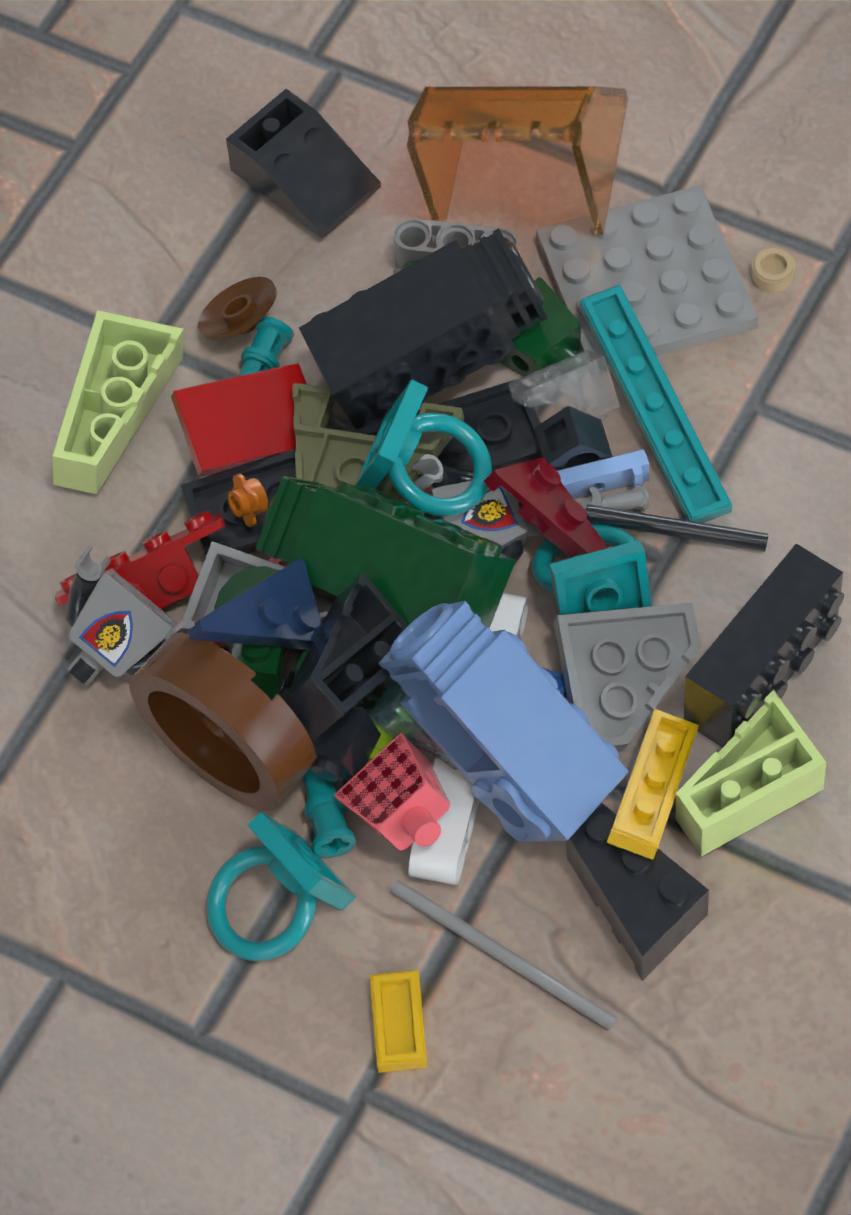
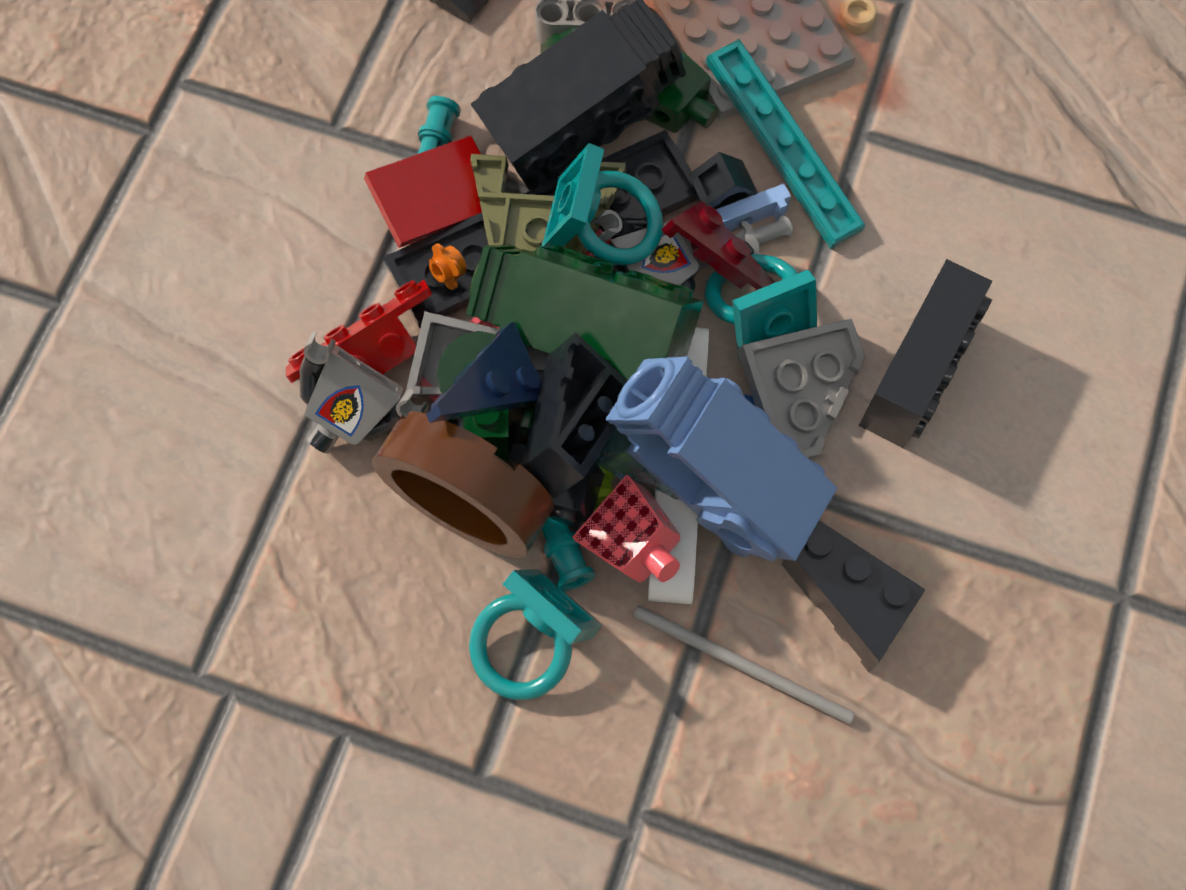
camera: 15 degrees left, 10 degrees up
(113, 392) = (309, 179): yellowish green wedge -> none
(237, 308) = (408, 91): reddish brown dish -> none
(398, 1021) = (661, 741): yellow tile -> none
(576, 381) = (713, 130): clear arch -> none
(653, 784) = (856, 499): yellow tile -> none
(677, 527) = (824, 250): black bar -> none
(750, 779) = (938, 474): yellowish green wedge -> none

